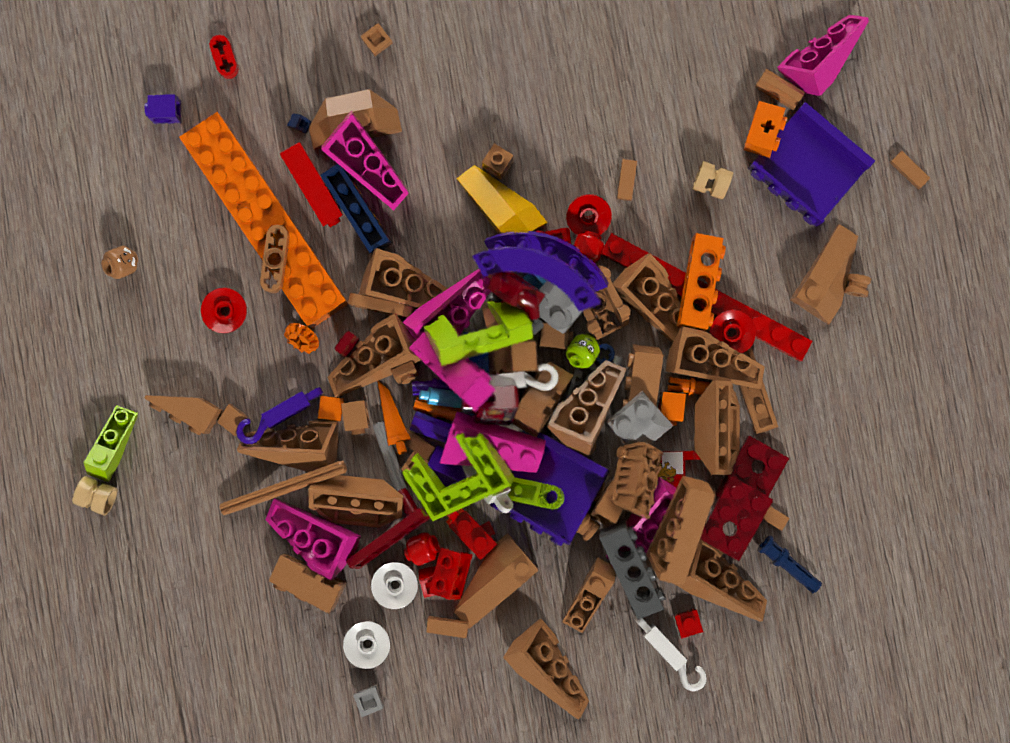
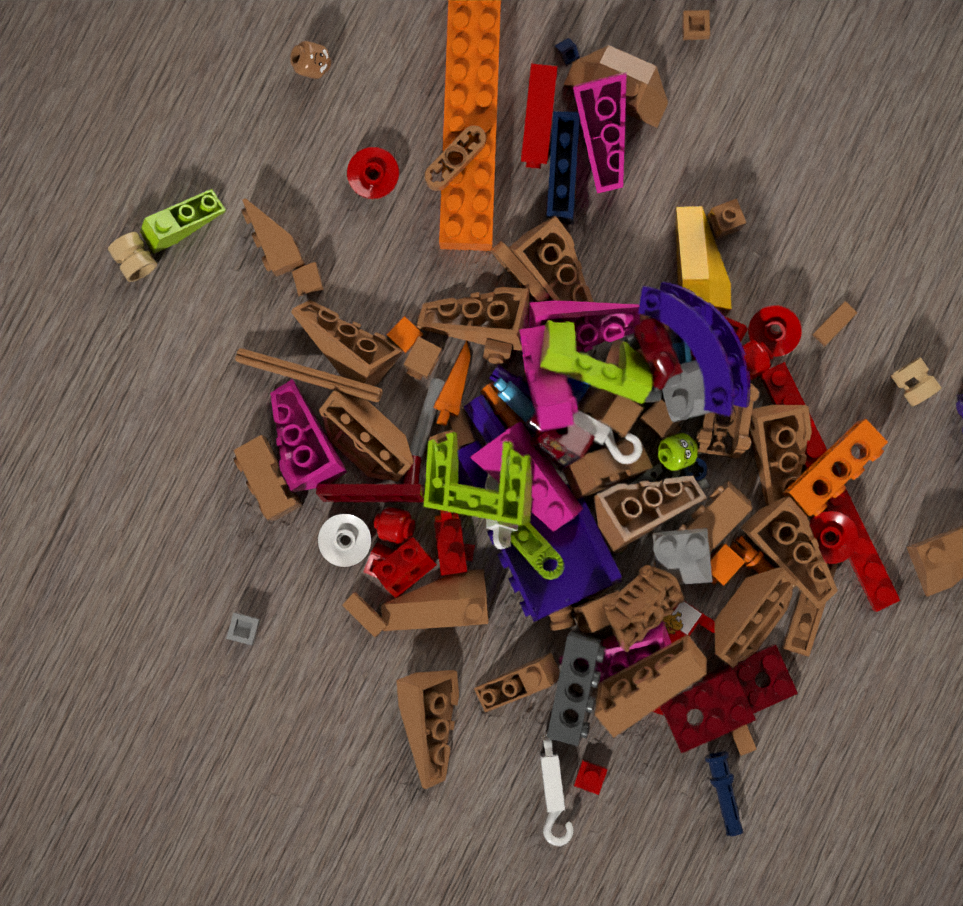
camera: 40 degrees right, 0 degrees up
(278, 414) = (354, 305): dark purple piece -> none
(307, 338) = (430, 256): orange gear -> none
(346, 343) = (464, 285): dark red tile -> none
(361, 655) = (265, 575): white dish -> none
(719, 583) = (647, 761): medium nougat wedge -> none

